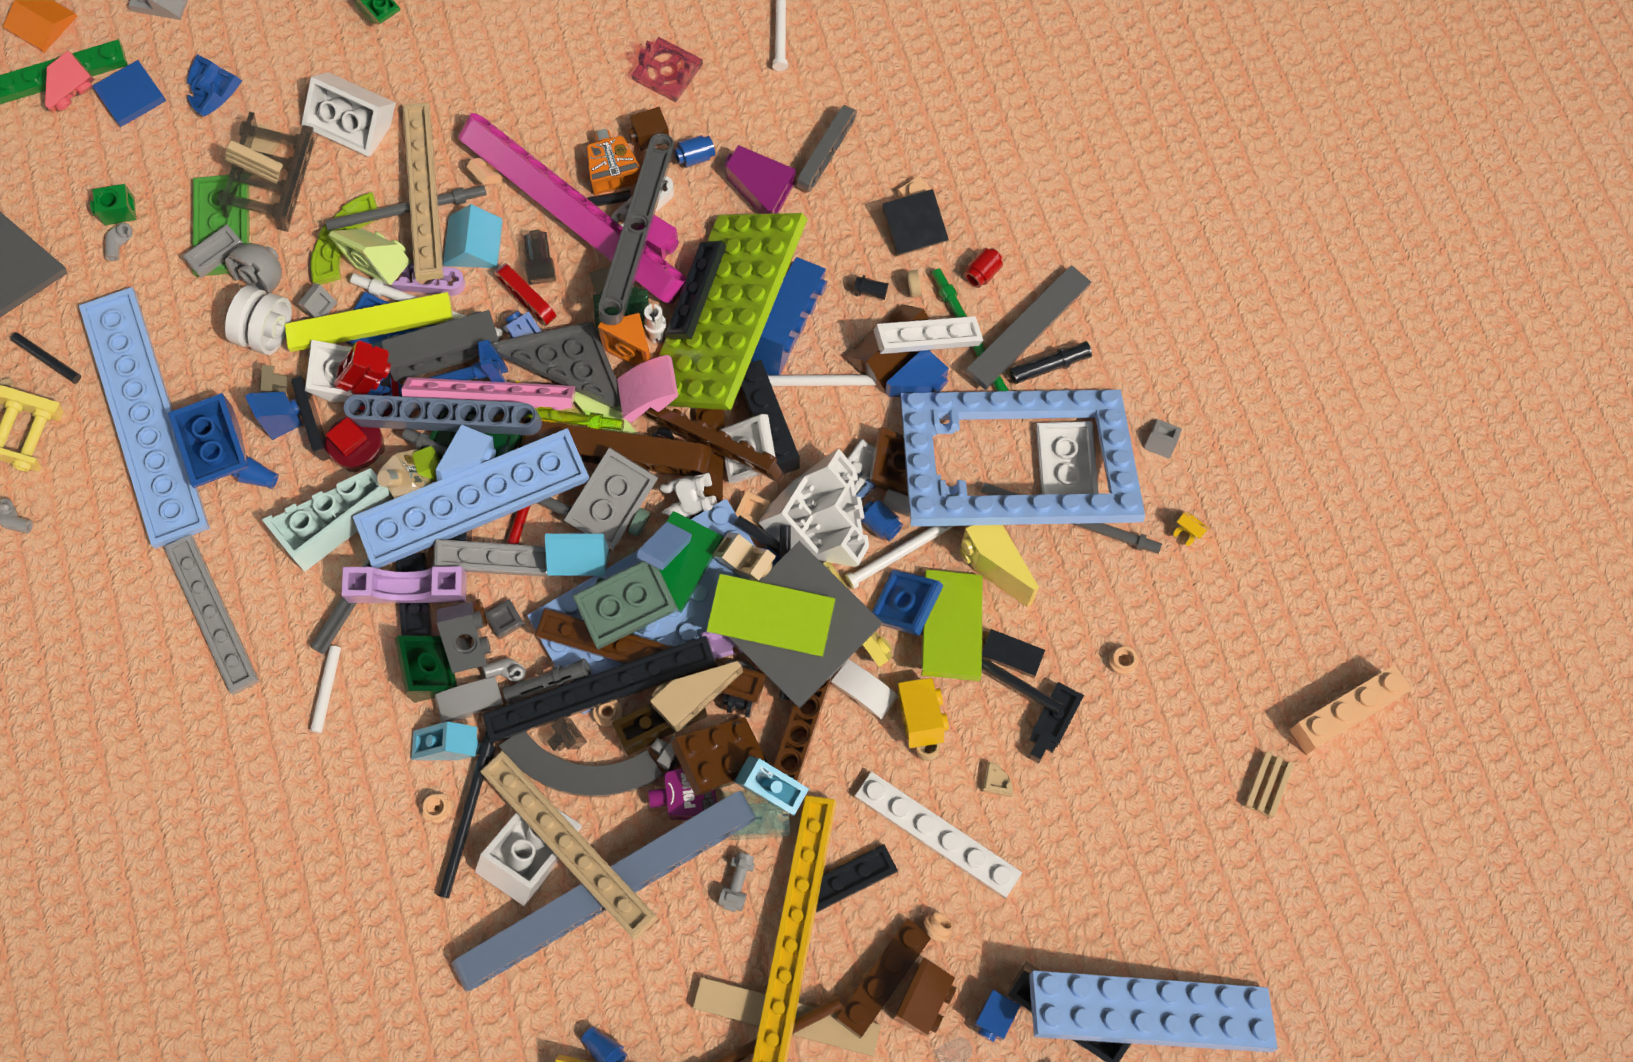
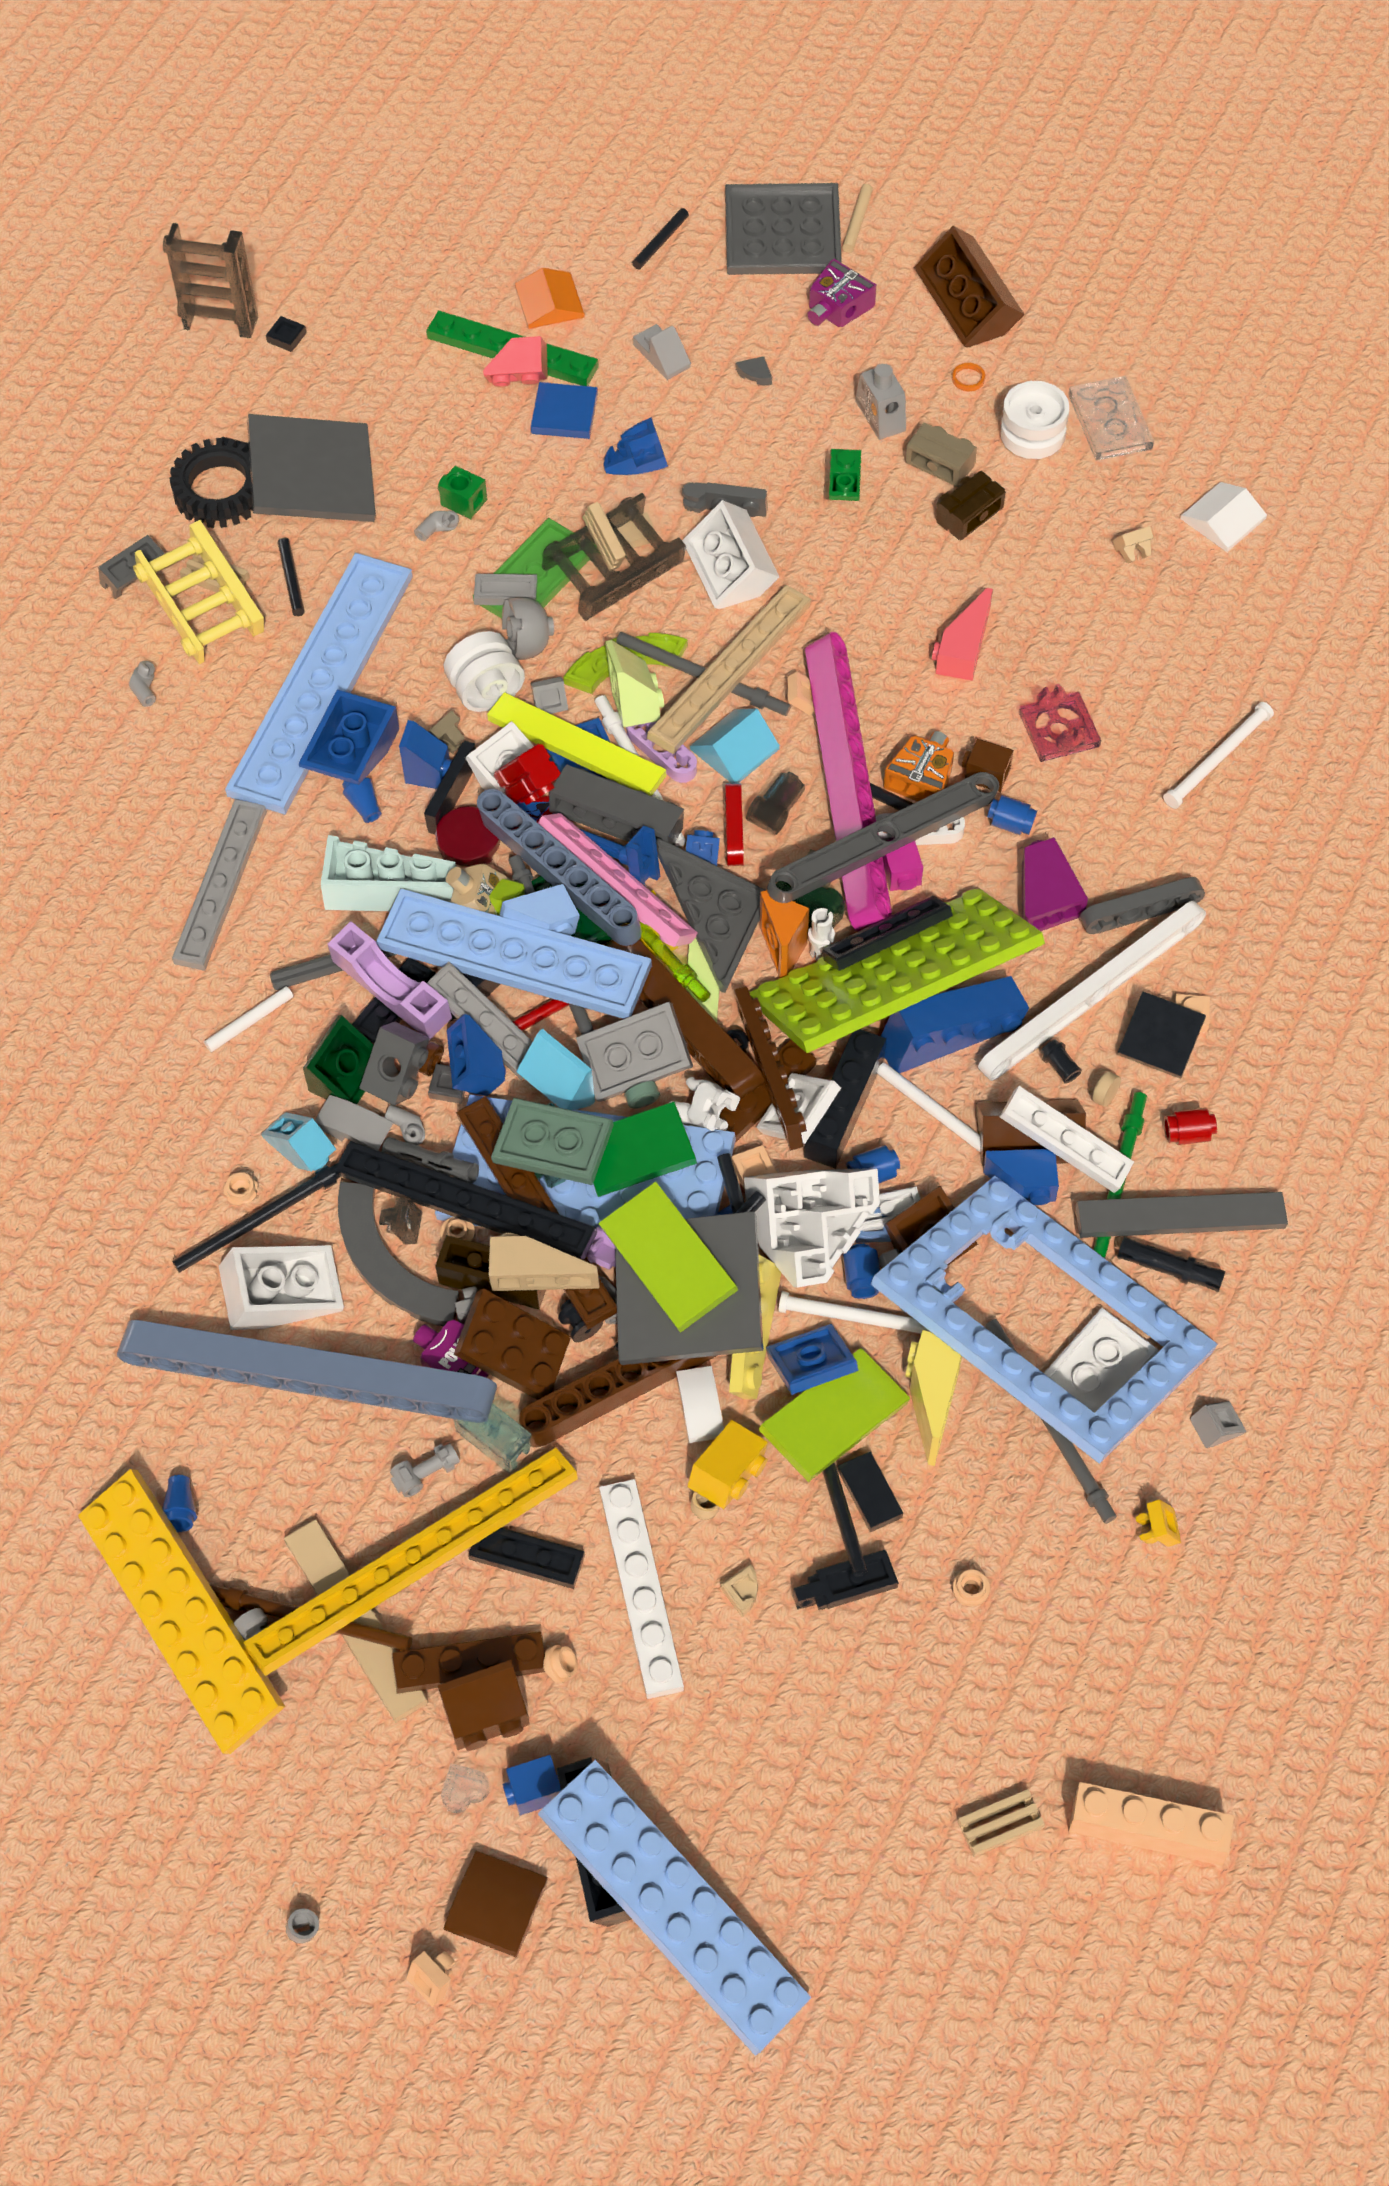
camera: 45 degrees right, 10 degrees down
(299, 76) = (707, 496): none -> dark grey hinge
(346, 436) = (463, 823): red tile -> none
(509, 589) = (474, 1058): none -> blue slope
(557, 59) = (963, 639): none -> coral slope
(569, 846) = (311, 1306): tan tile -> none
(647, 386) = (758, 981): bright pink slope -> none
(664, 545) = (632, 1119): medium blue tile -> none
(743, 557) = (694, 1189): tan brick -> none
(771, 785) = (527, 1403): medium azure slope -> none
(824, 443) = (879, 1158): none -> blue brick
(847, 228) = (1091, 990): none -> white beam

